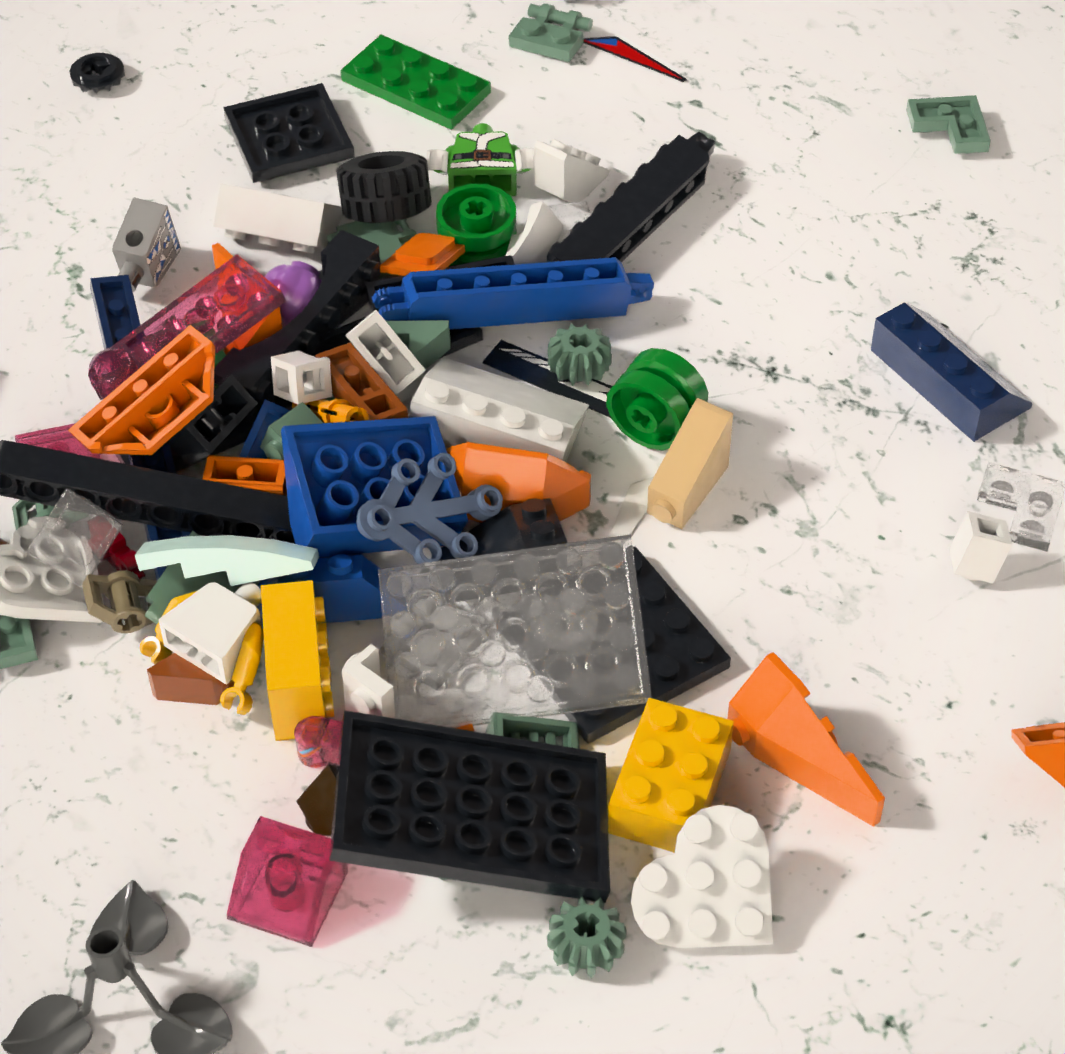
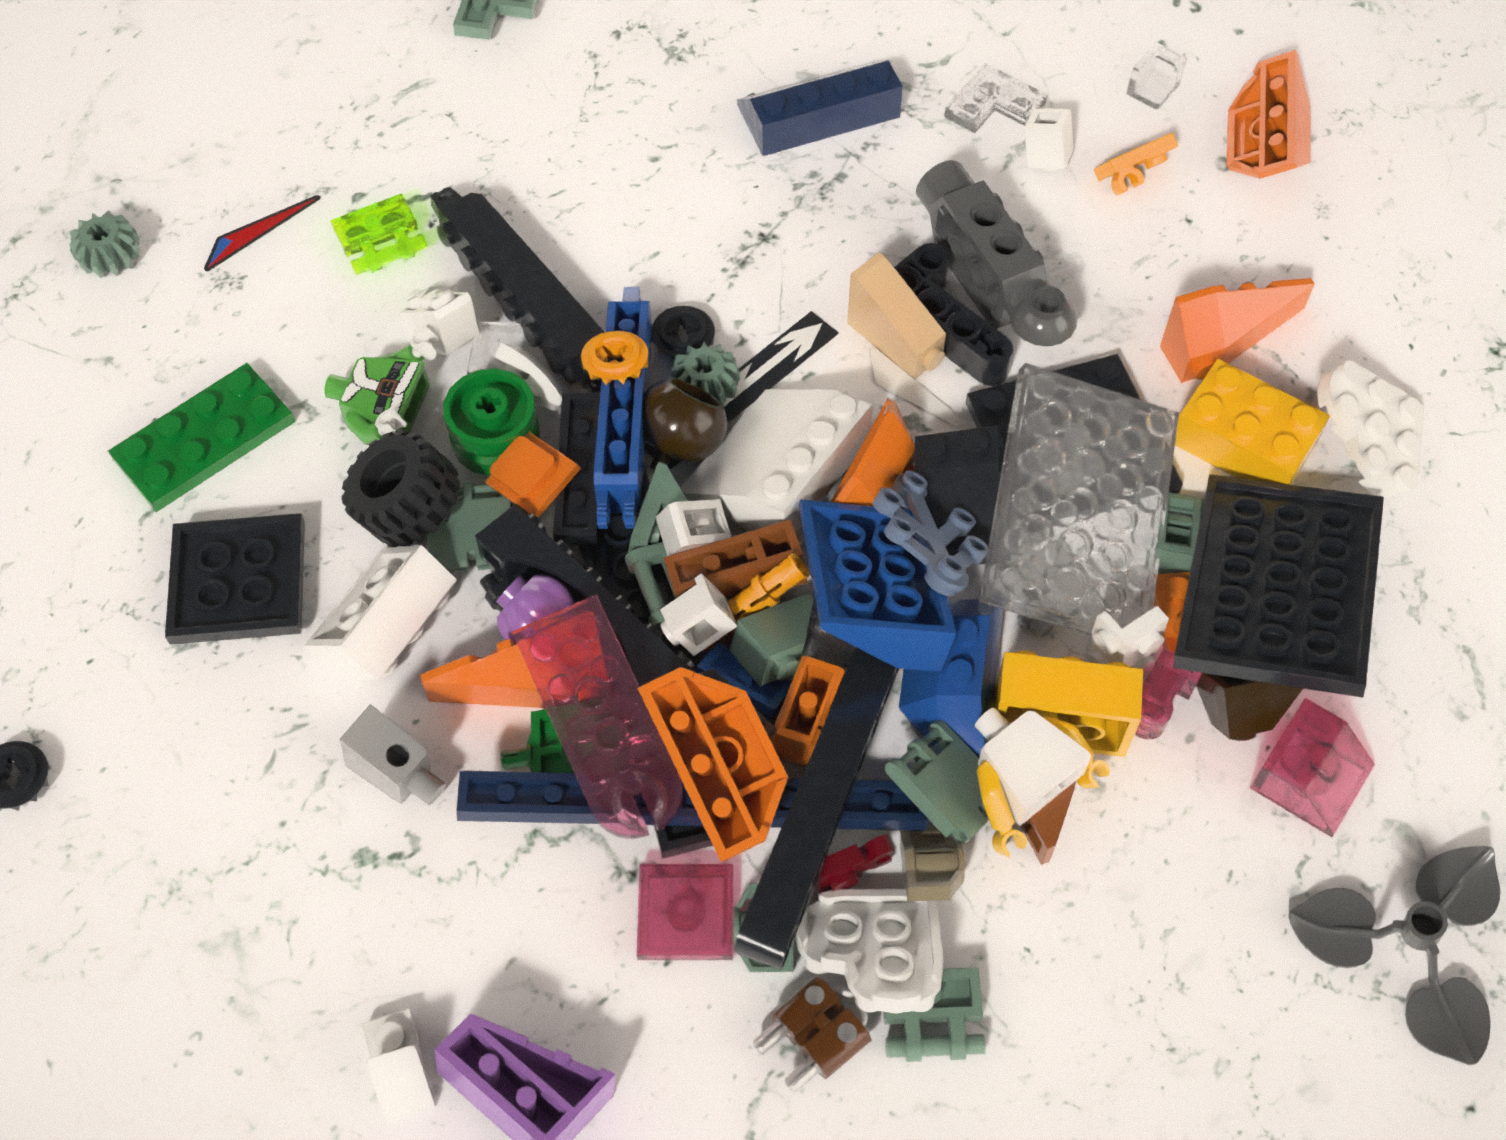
camera: 75 degrees left, 10 degrees up
(75, 537) = (862, 887): clear piece -> none
(242, 557) = (948, 728): light aqua slope -> none
(505, 344) = (681, 424): none -> dark brown piece
(533, 252) = (614, 345): none -> light orange gear
(550, 40) = (191, 299): sand green plate -> none
(601, 937) = (1410, 535): sand green gear -> none
(633, 324) = (694, 322): none -> black gear
(655, 397) = (810, 318): green wheel -> none
(660, 115) = (376, 225): none -> clear neon green plate
(733, 482) = (969, 338): none -> black beam
(792, 520) = (994, 257): none -> dark grey brick
(1012, 645) = (1124, 165): none -> light orange plate

